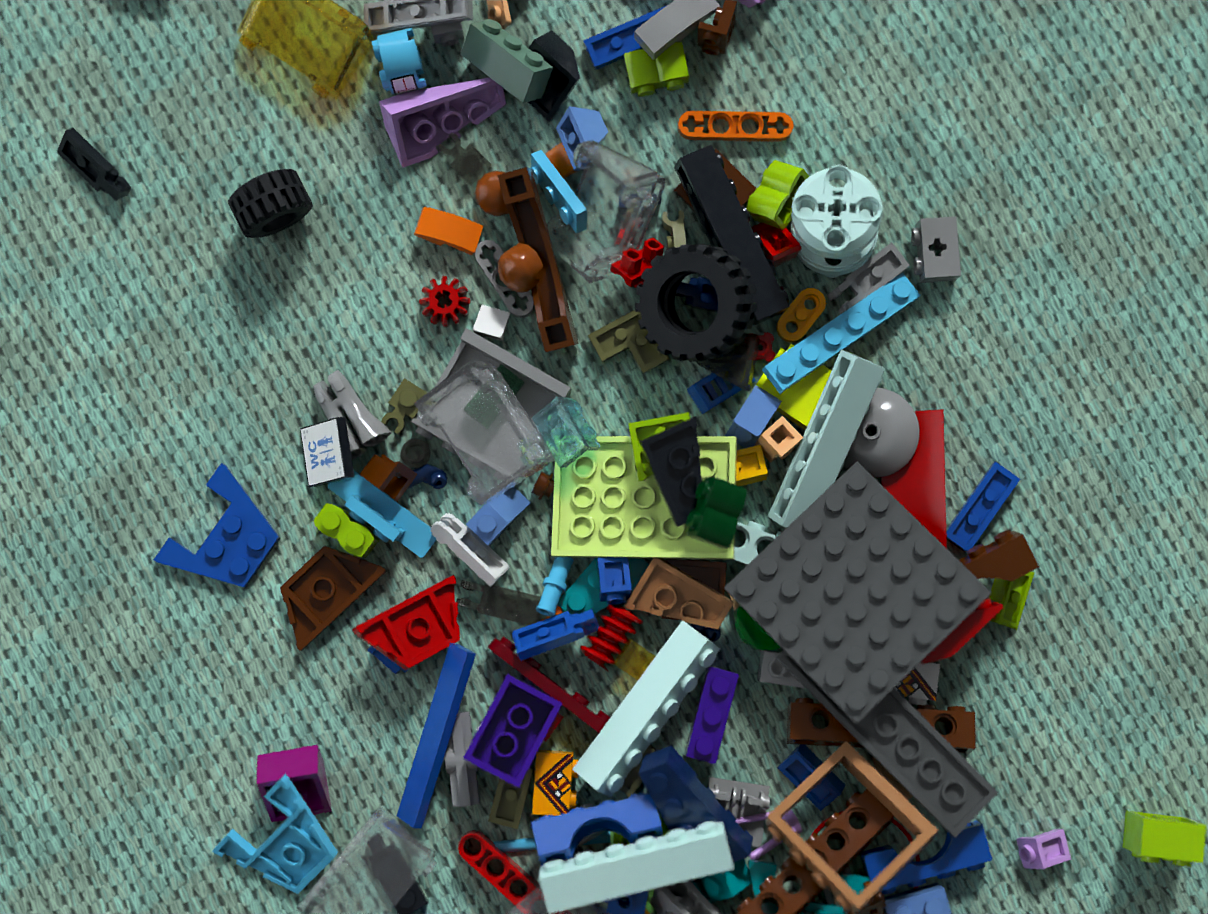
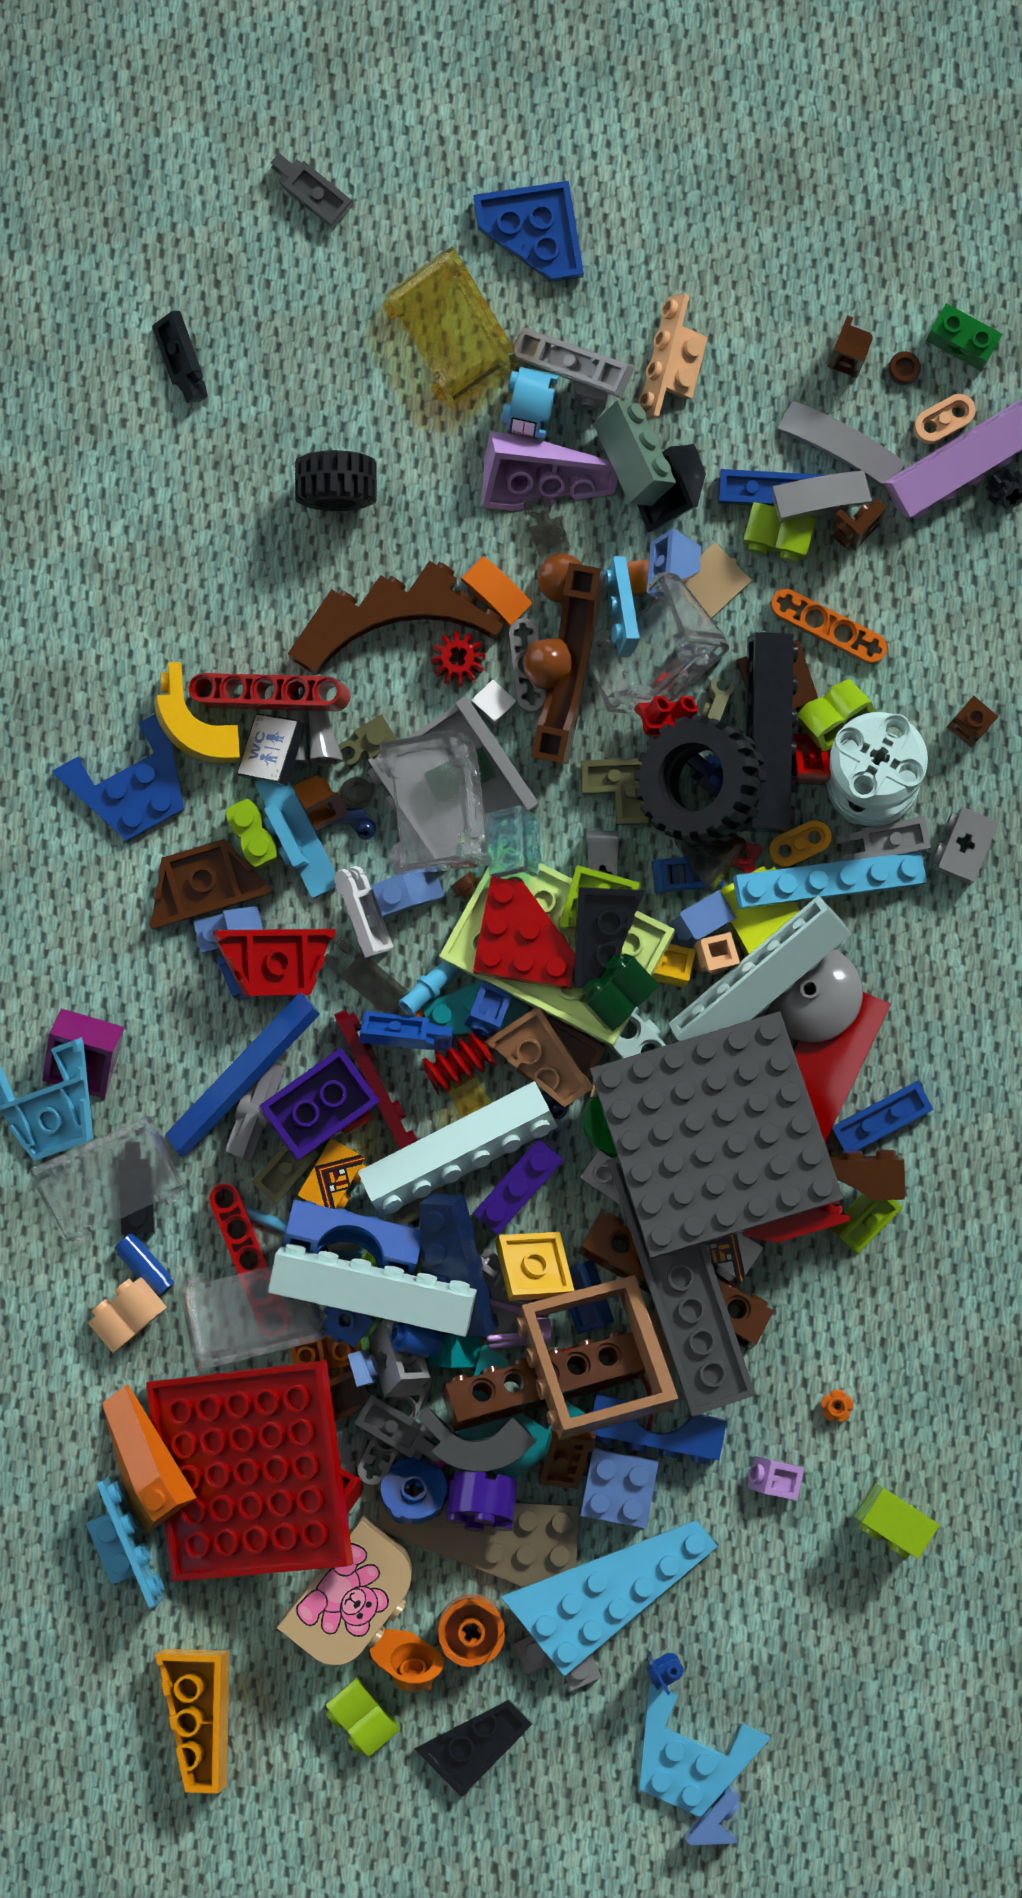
camera: 20 degrees right, 0 degrees up
(251, 473) = (186, 732): none -> yellow arch
(288, 409) = (254, 692): none -> red beam
(364, 610) = (233, 919): none -> medium blue slope
(397, 262) = (387, 602): none -> reddish brown arch
(612, 508) = (521, 940): none -> red plate
(626, 131) = (717, 581): none -> tan piece
(643, 400) = (603, 851): none -> dark grey piece
(692, 891) = (415, 1340): none -> blue brick
(758, 774) = (533, 1265): none -> yellow plate
(891, 145) = (972, 721): none -> reddish brown window
(1057, 758) = (830, 1400): none -> orange plate

